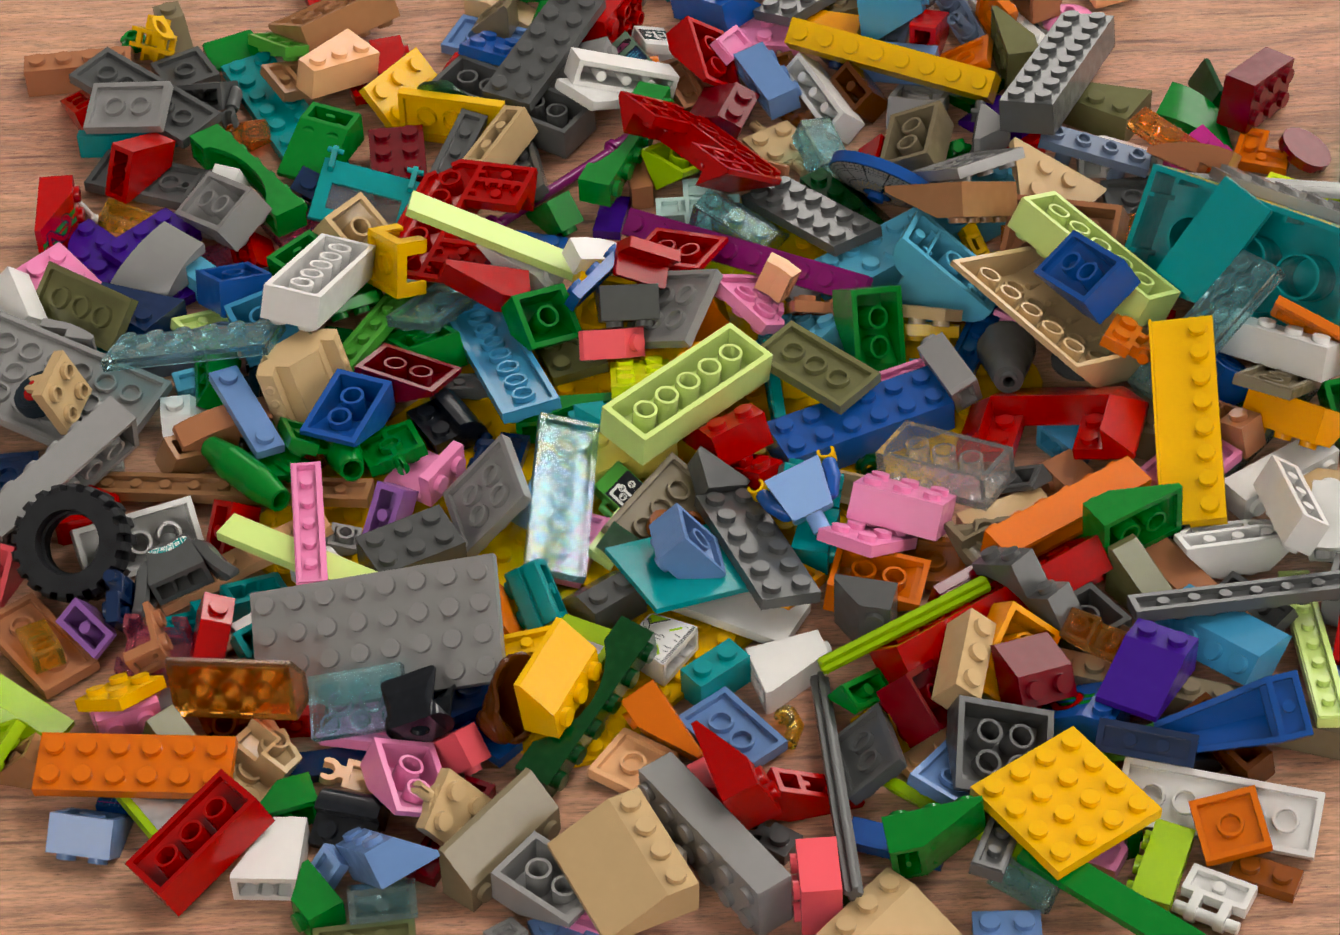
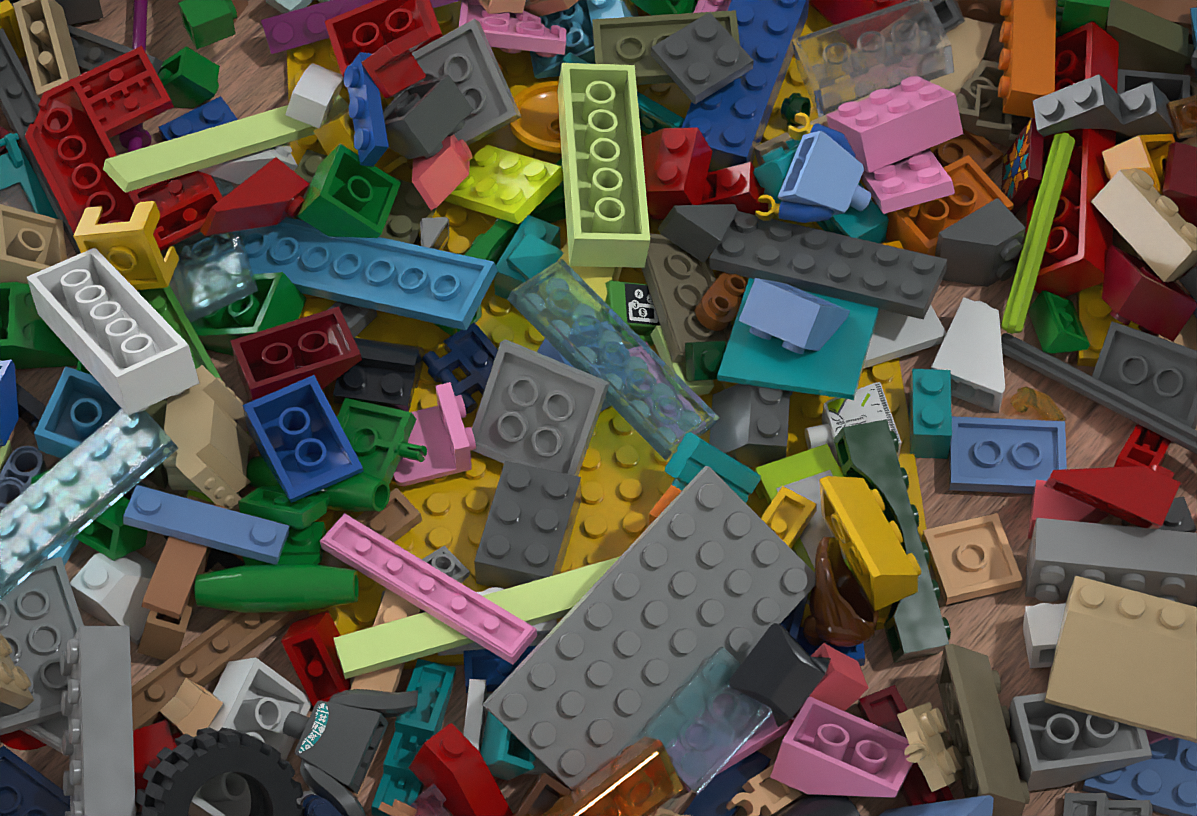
camera: 50 degrees left, 15 degrees up
(138, 499) = (191, 708): none -> light nougat piece
(389, 504) = (452, 509): medium lavender slope -> none
(569, 380) = (434, 232): none -> light grey slope
(611, 219) = (236, 53): dark purple tile -> none
(659, 721) = (953, 496): orange slope -> none
(821, 381) = (702, 58): none -> dark grey plate

